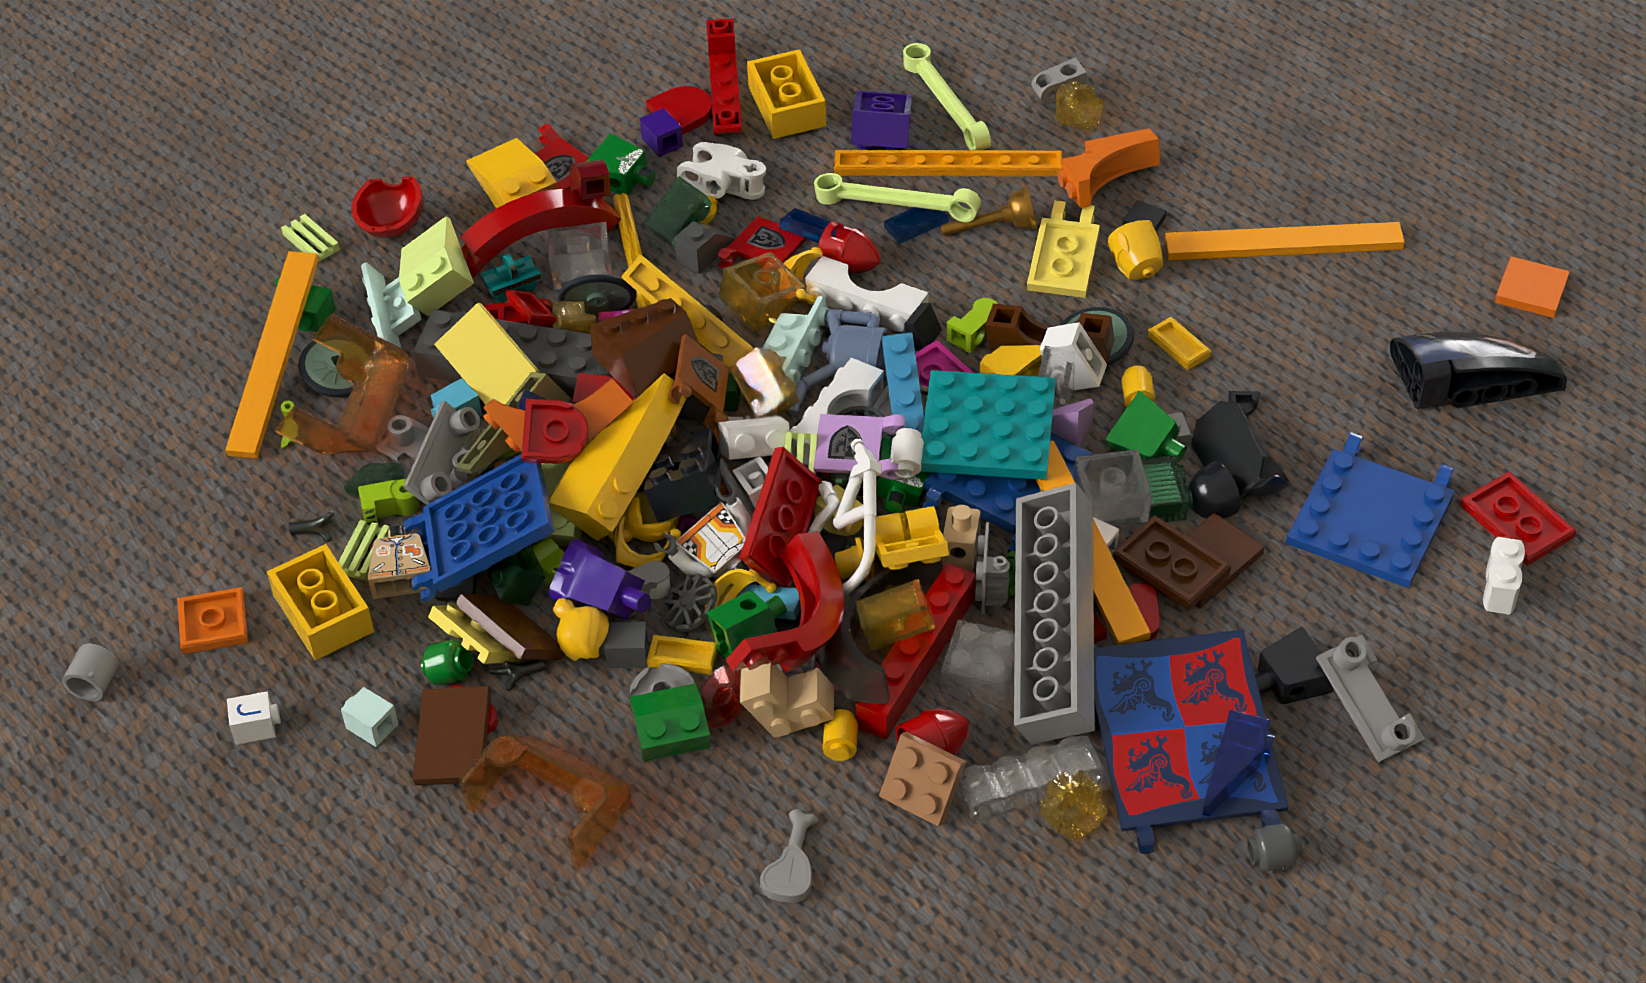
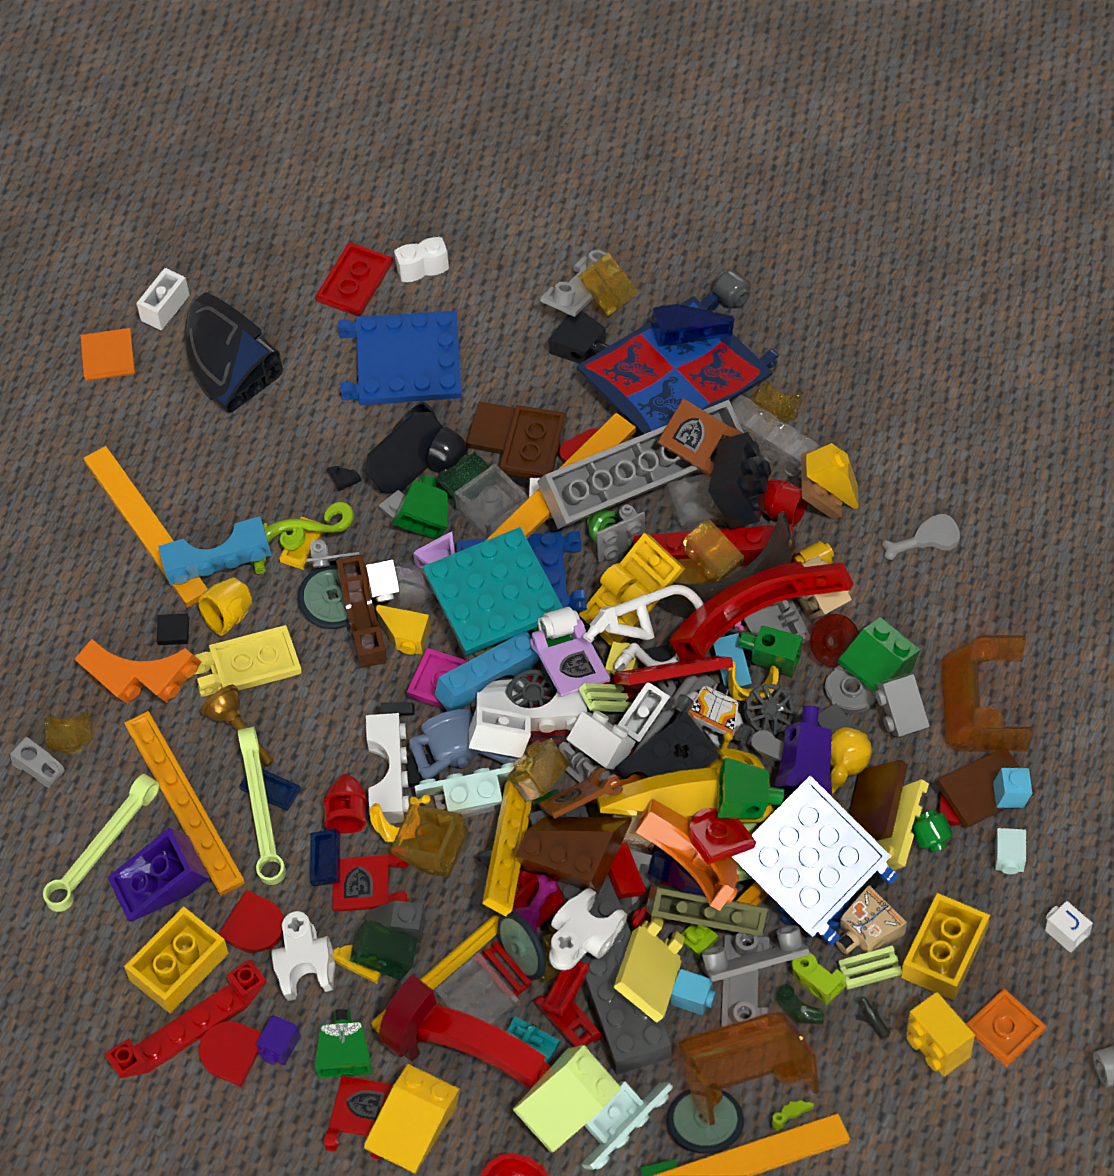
camera: 120 degrees left, 10 degrees up
(240, 544) = (939, 1035): none -> yellow brick
(421, 738) = (1012, 787): none -> medium azure brick
(558, 317) = (582, 932): none -> white piece
(577, 466) = (745, 791): none -> green torso
(595, 703) = (901, 705): none -> light grey brick
(688, 654) = (809, 690): yellow tile -> none
(788, 162) = (253, 924): none -> red tile
(822, 361) = (499, 731): none -> white brick
(850, 559) = (662, 627): yellow piece -> none
(911, 778) = (833, 472): none -> yellow slope
(962, 531) = (593, 565): tan torso -> none
(963, 673) = (739, 480): none -> black brick
(971, 329) = (370, 677): lime leg -> none
(1044, 658) = (694, 435): none -> dark orange flag
(1134, 380) = (374, 540): yellow brick -> none
(1135, 336) = (320, 554): none -> light grey hinge
(1185, 329) = (294, 541): none -> lime plant
(1196, 279) = (244, 545): none -> dark azure arch
(1347, 713) = (608, 284): none -> clear yellow brick
(1574, 338) = (163, 299): none -> white brick

